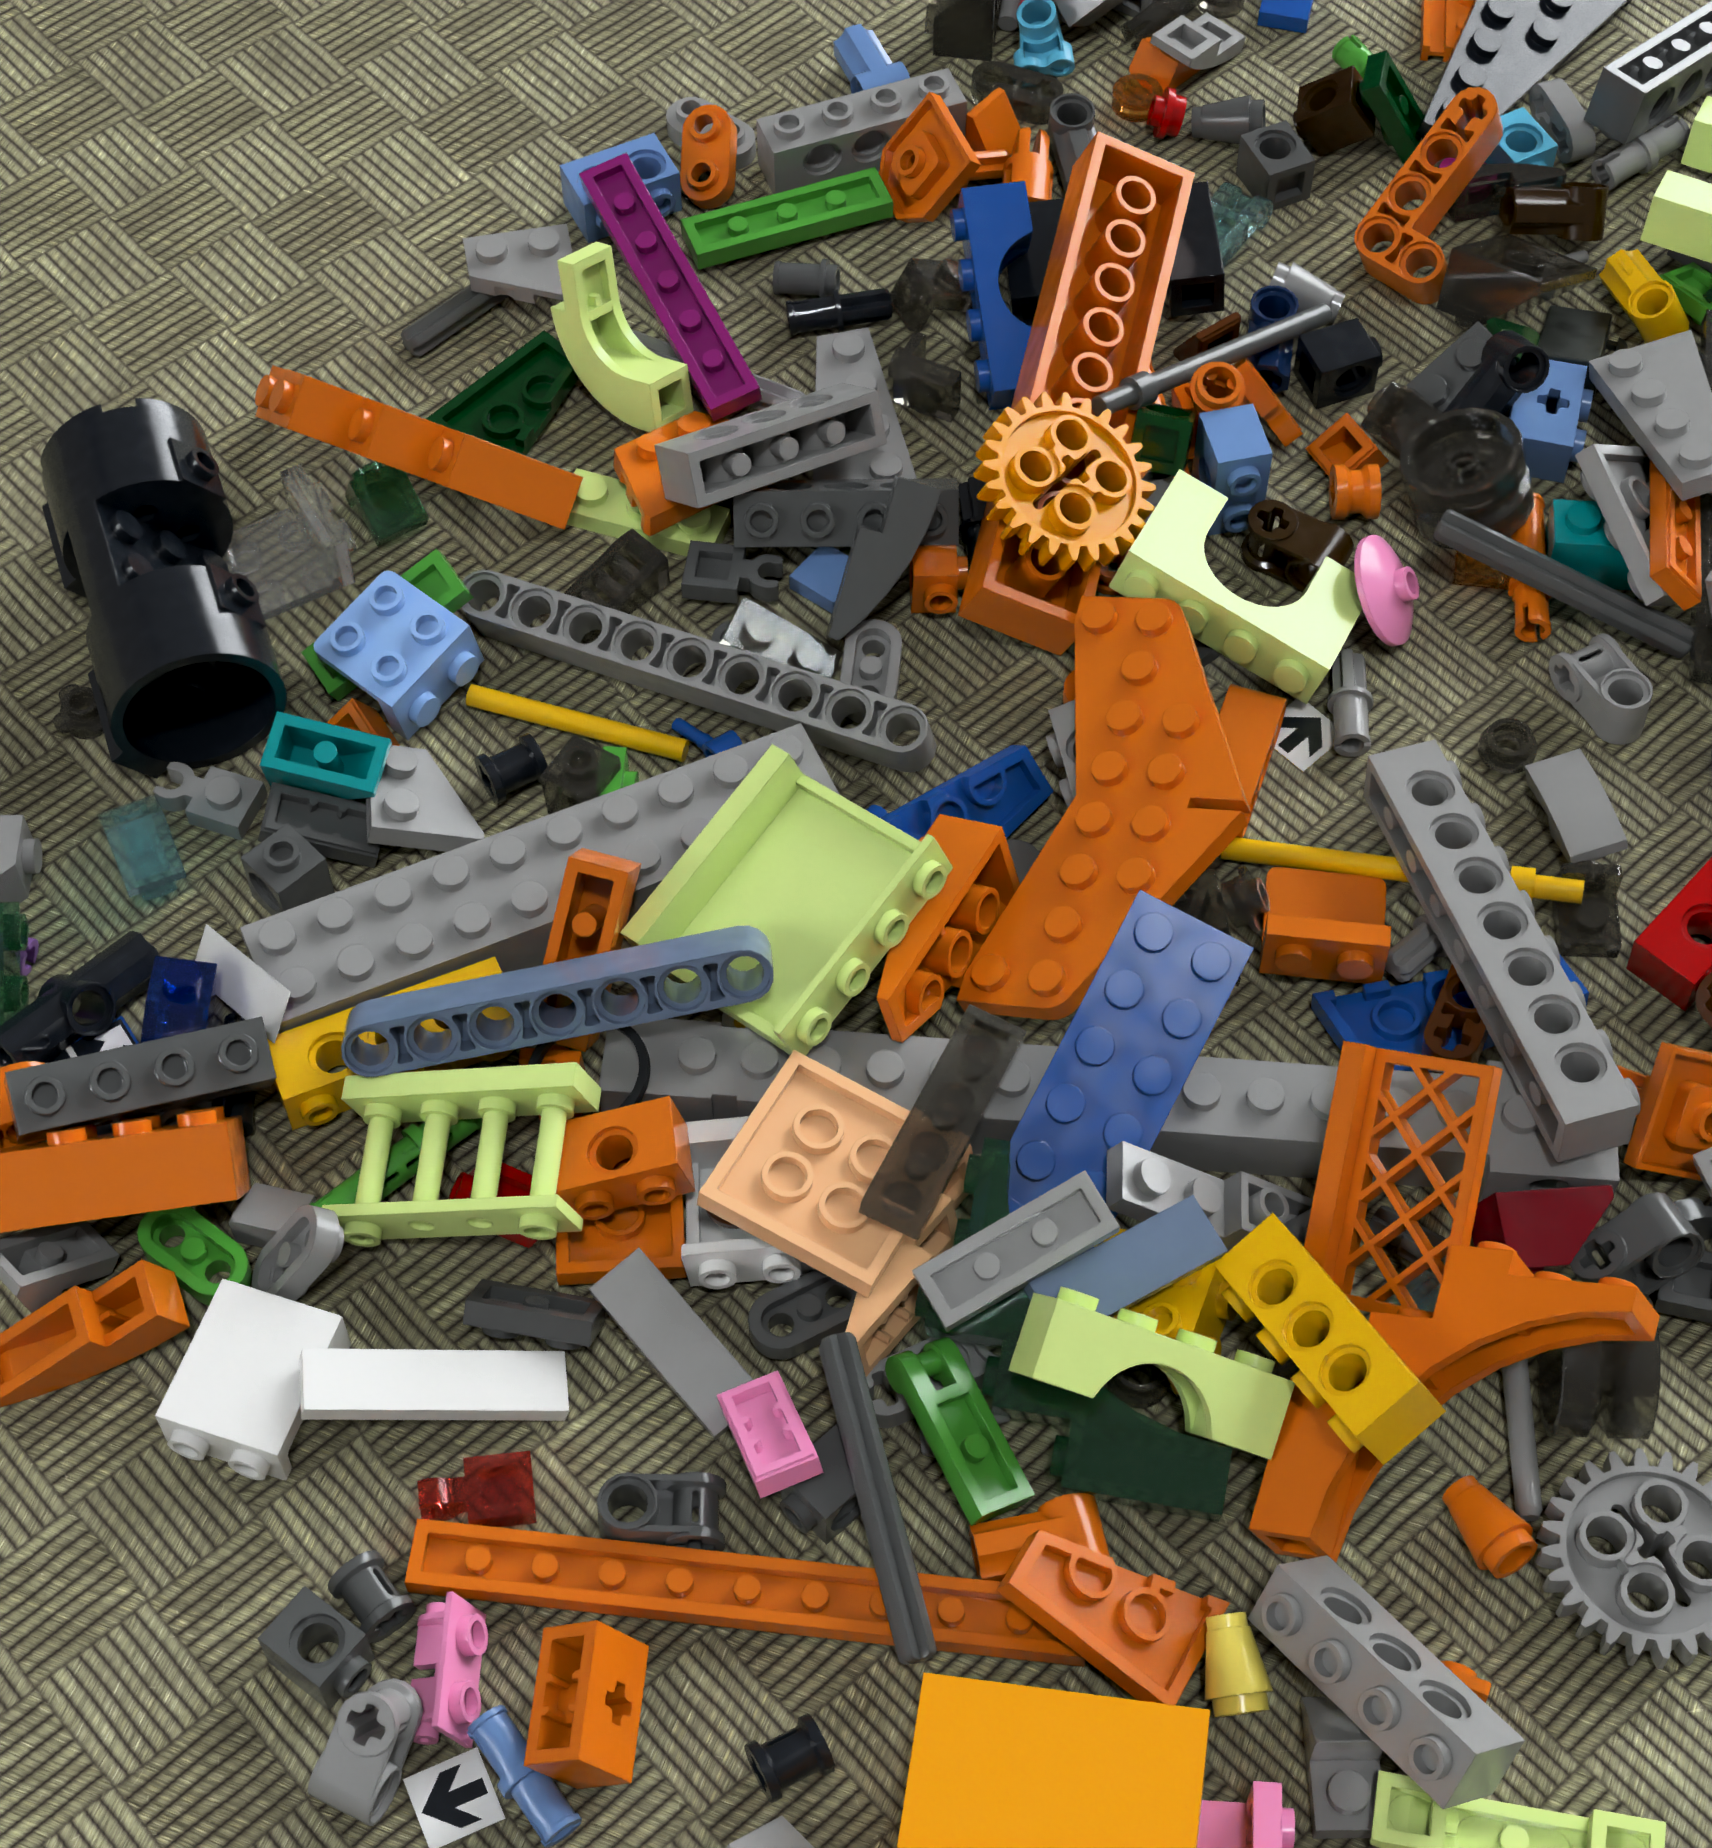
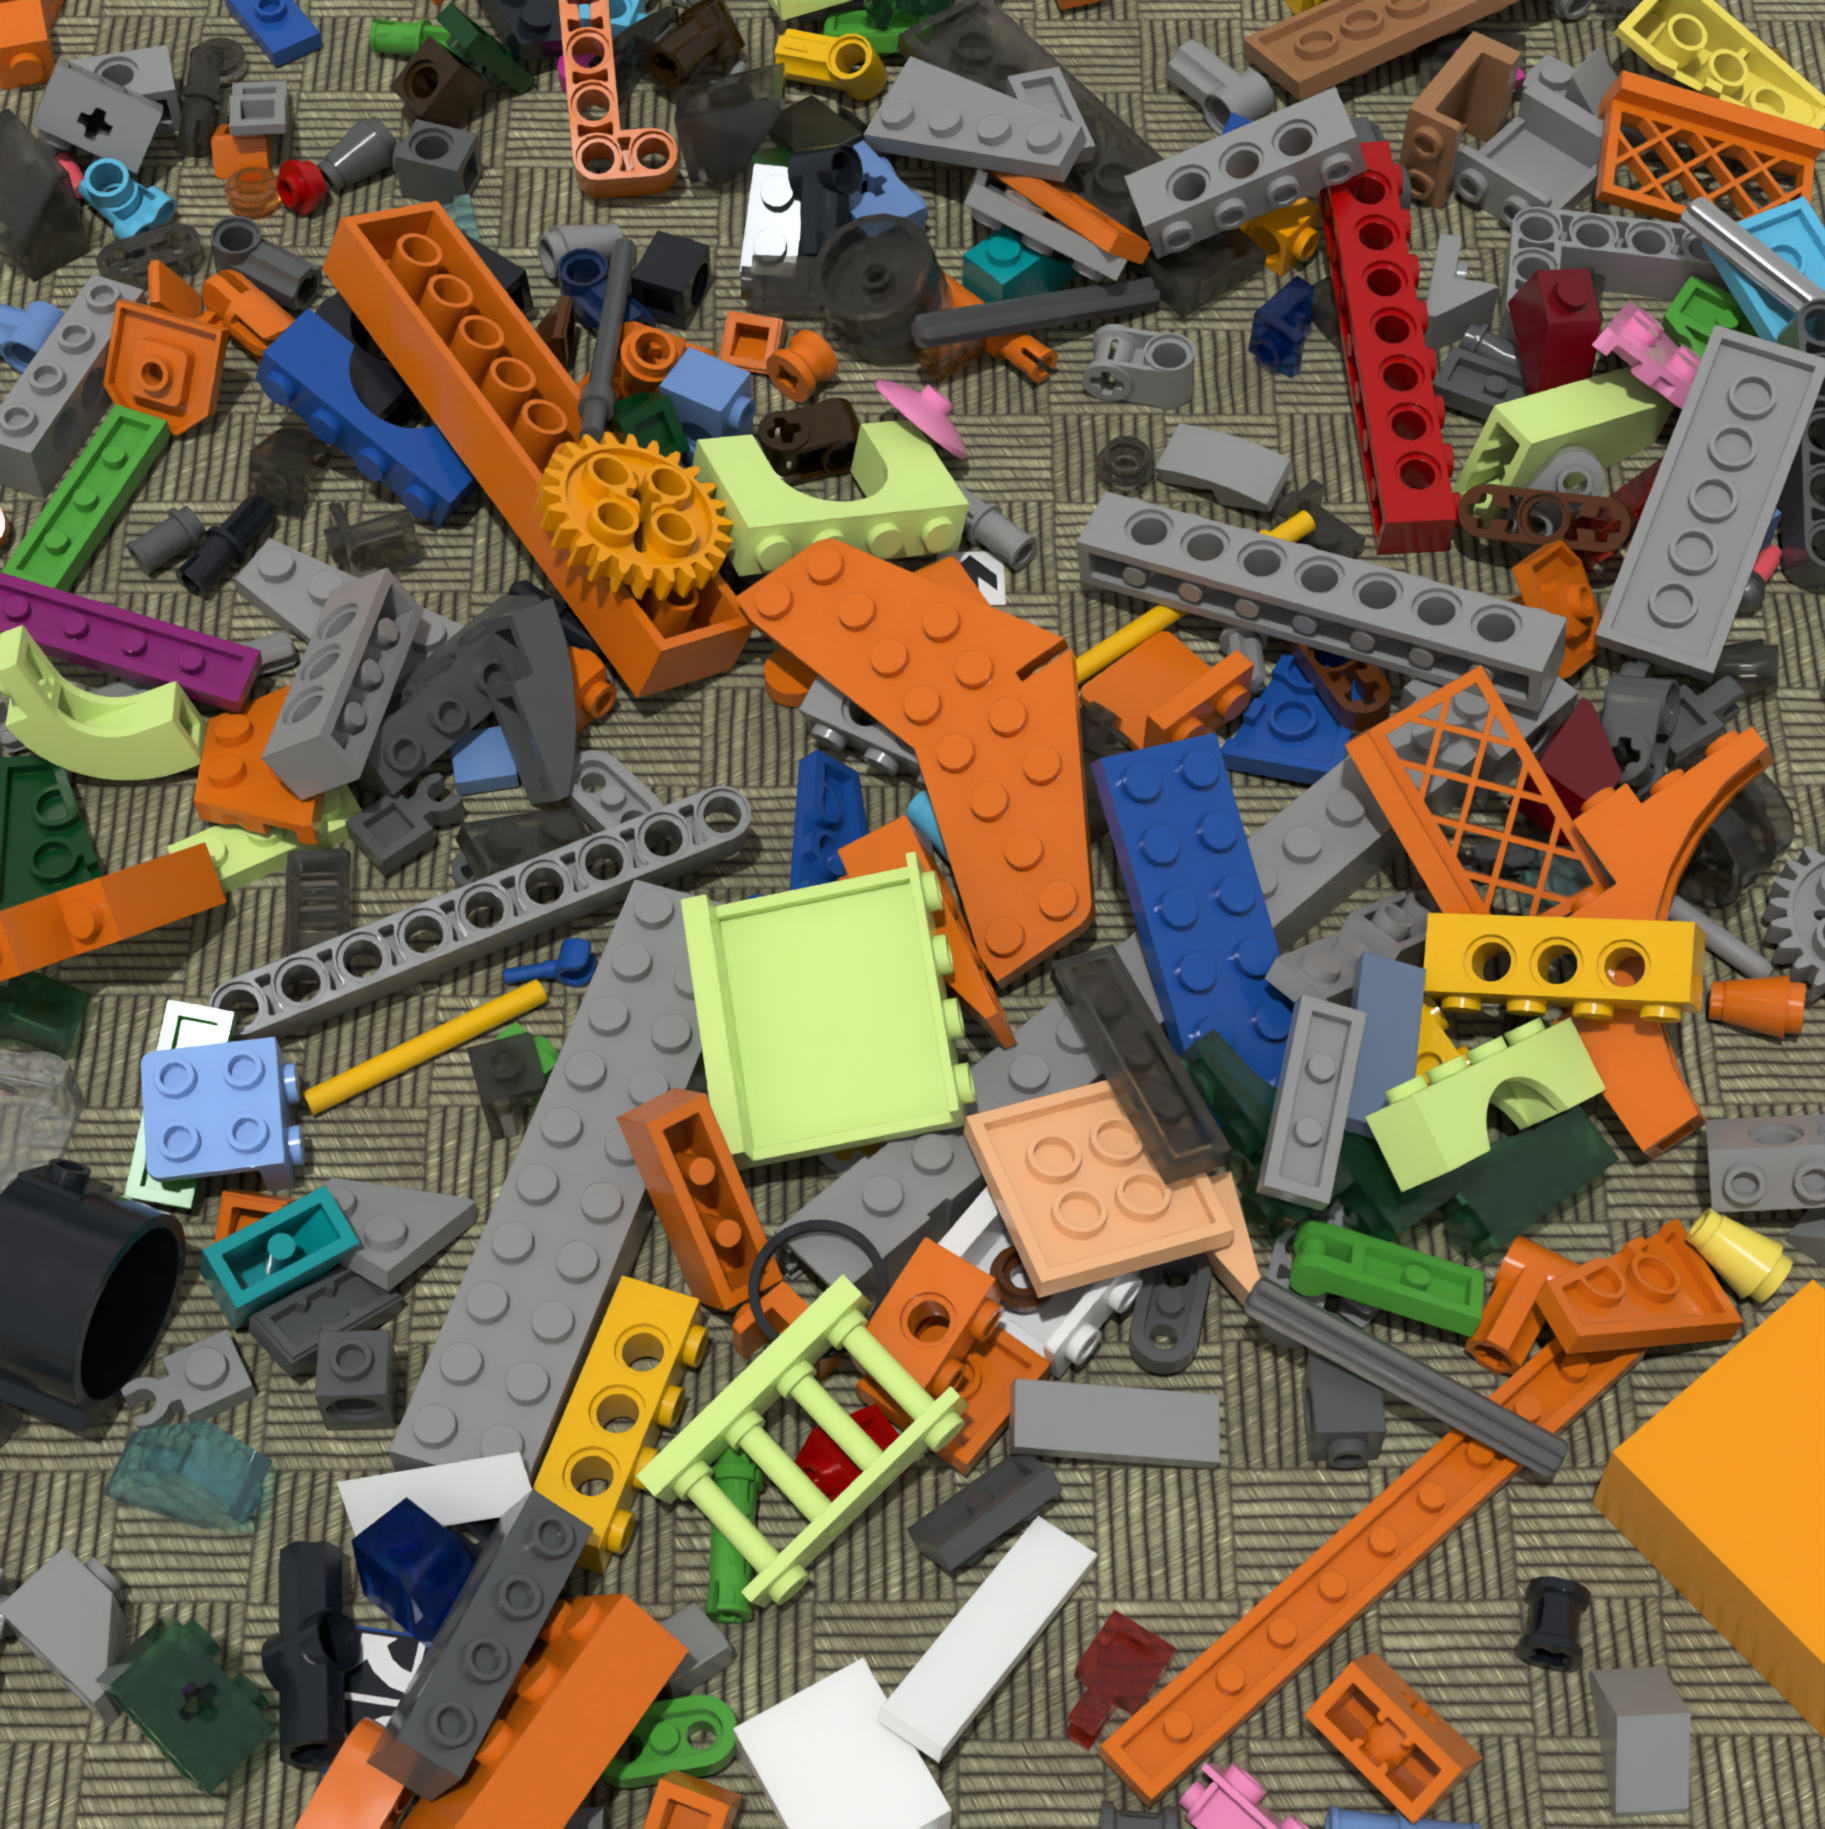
camera: 50 degrees left, 0 degrees up
(299, 1252) = (765, 1647): light grey plate -> none
(511, 768) = (427, 1126): black bush -> none
(536, 1022) = (745, 1255): sand blue beam -> none
(666, 1508) = (1264, 1546): dark grey piece -> none
(769, 1434) = (1276, 1413): bright pink plate -> none

